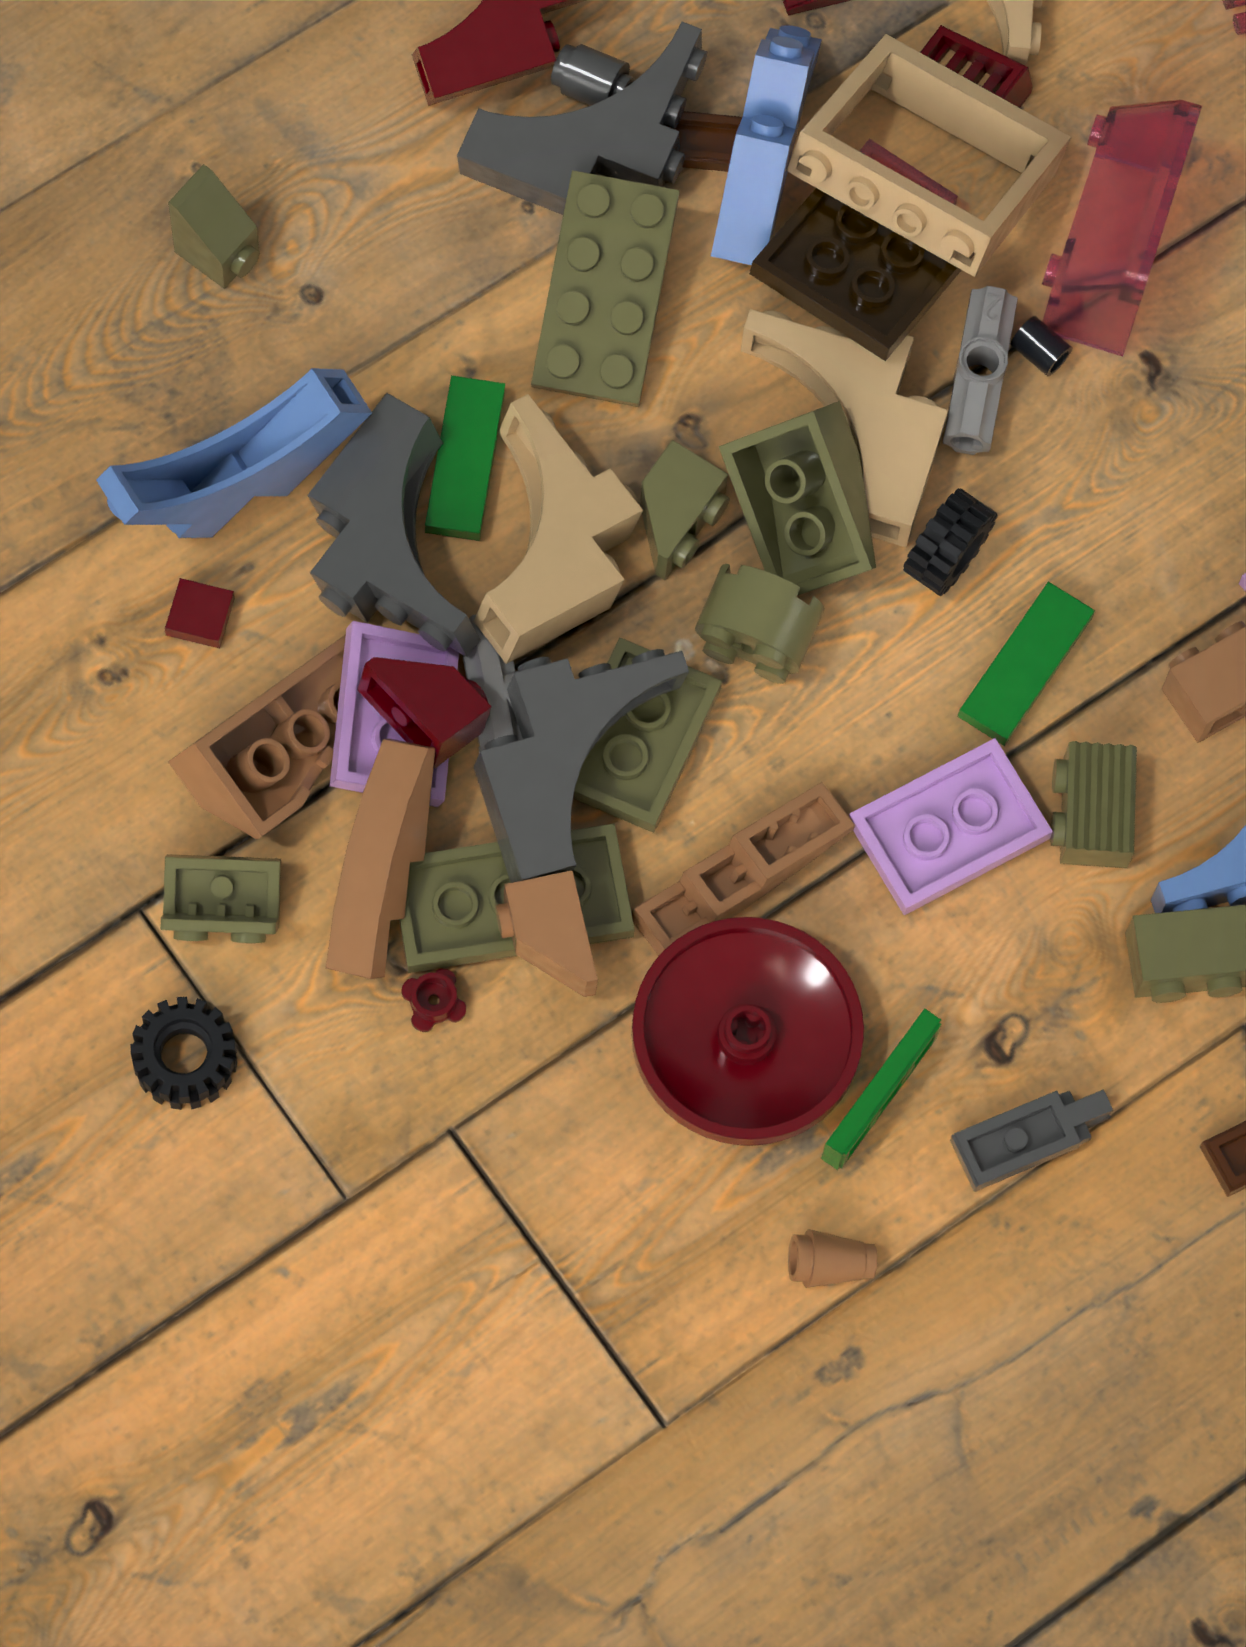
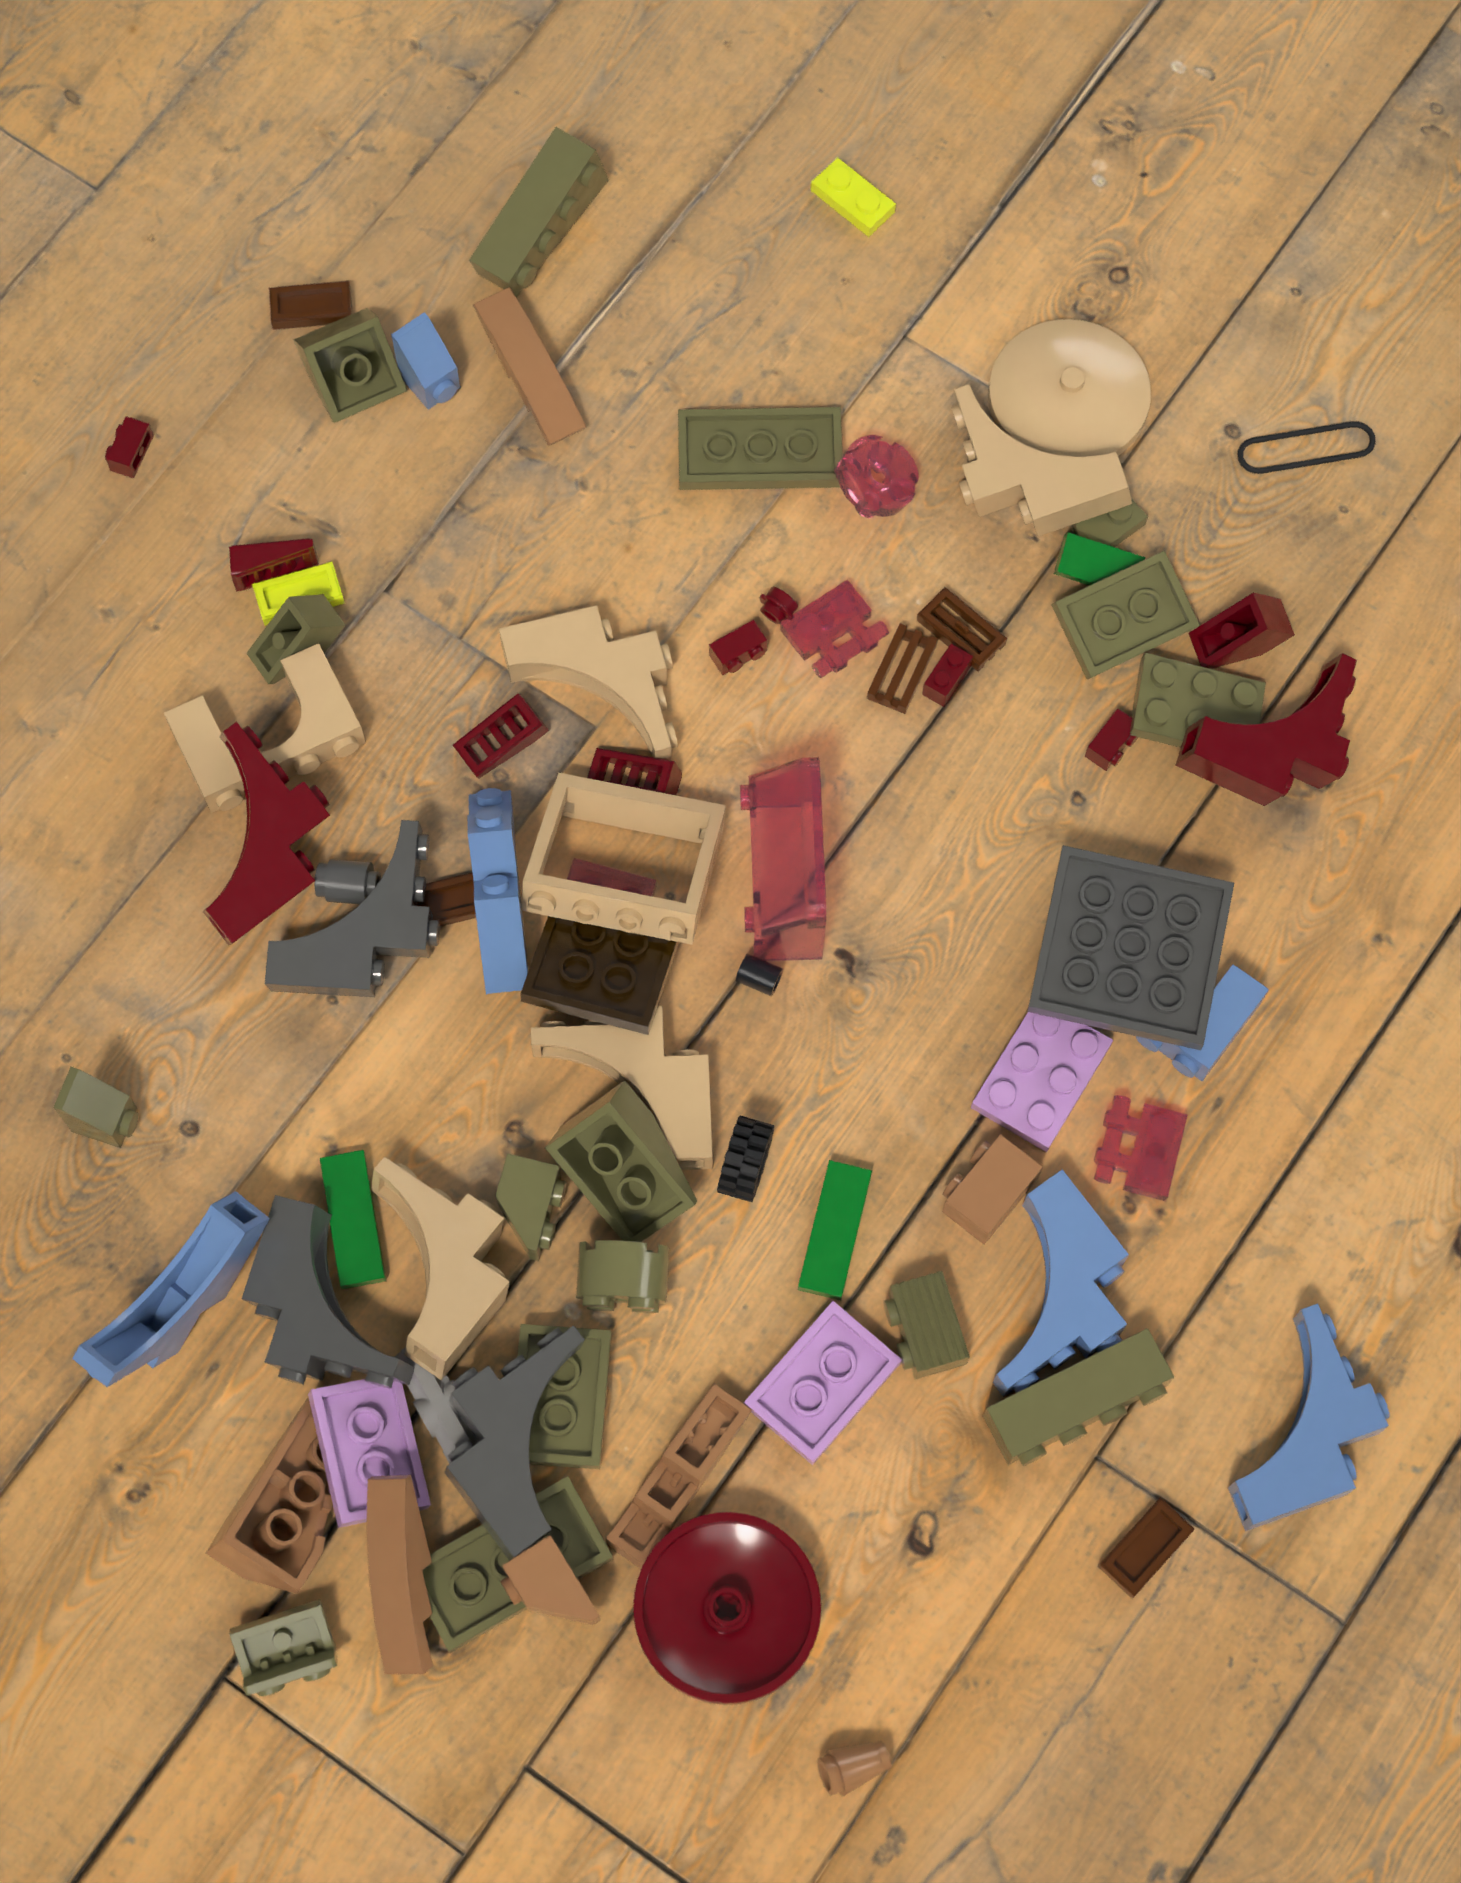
camera: 15 degrees left, 0 degrees up
(176, 1020) = (269, 1778): black tyre -> none
(199, 613) = (189, 1419): dark red tile -> none
(426, 703) = (392, 1439): dark red slope -> none
(433, 984) = (473, 1681): dark red plate -> none
(605, 288) = (414, 1049): olive plate -> none
(881, 1090) = (845, 1615): green tile -> none
(974, 396) = (723, 1035): light grey piece -> none
(1027, 1136) = (967, 1610): dark grey hinge -> none

